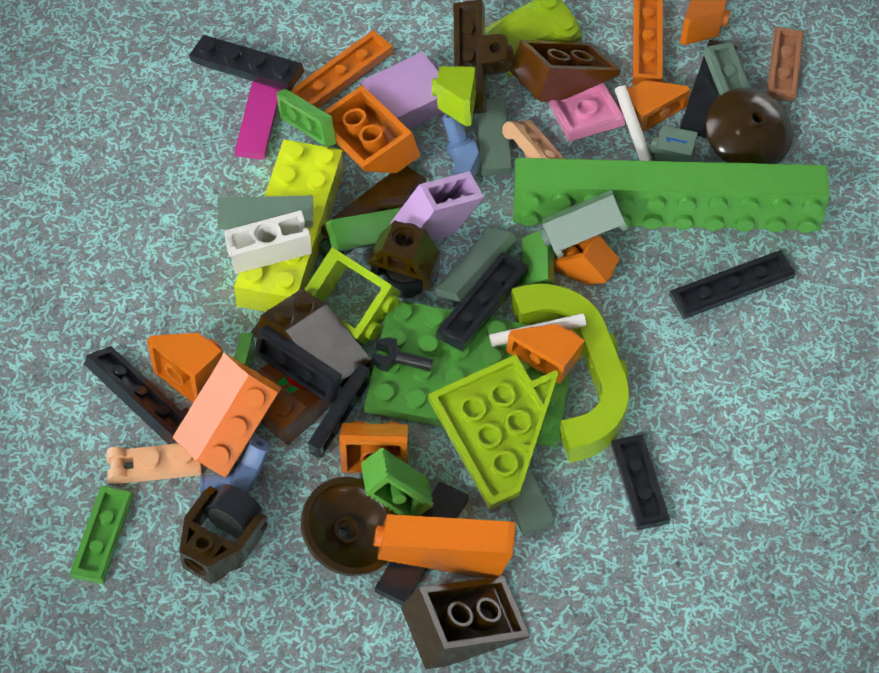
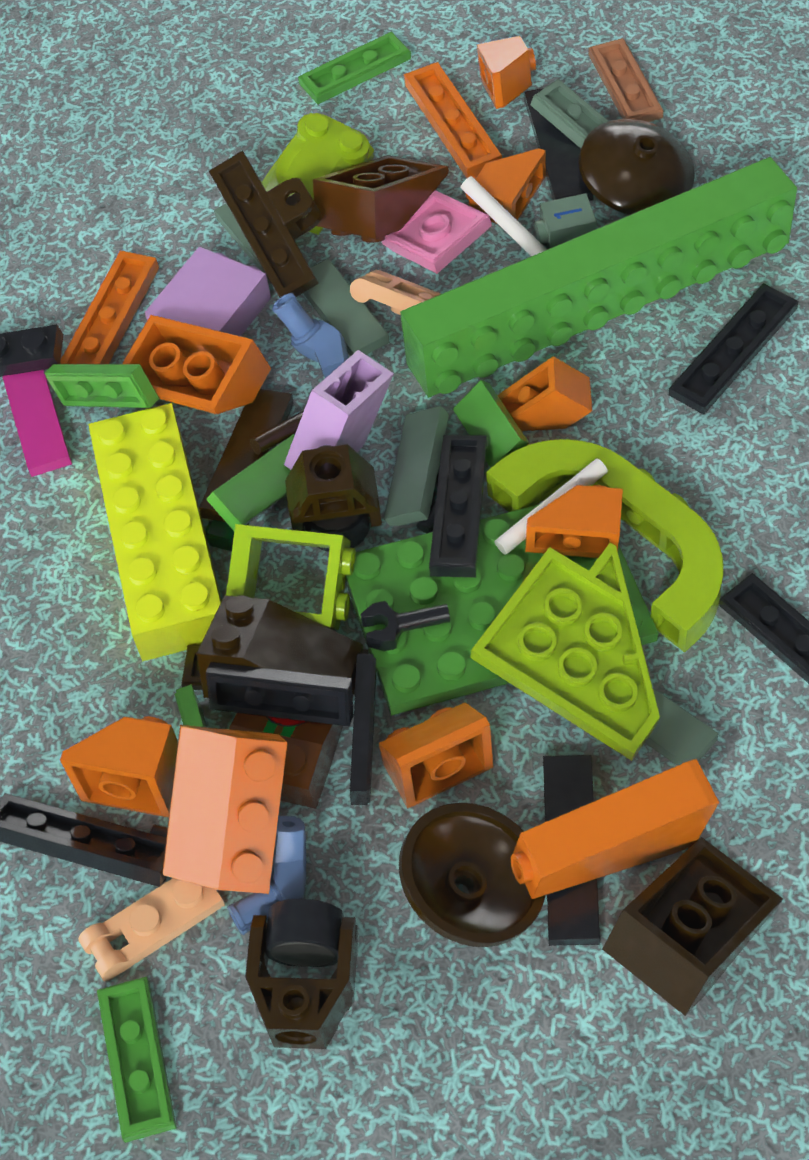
camera: 20 degrees left, 0 degrees up
(246, 210) = (121, 521): sand green tile -> none
(285, 240) = (164, 534): white piece -> none
(396, 484) = (500, 788): bright green brick -> none
(456, 92) = (276, 270): lime slope -> none
(582, 222) = (527, 350): brick -> none

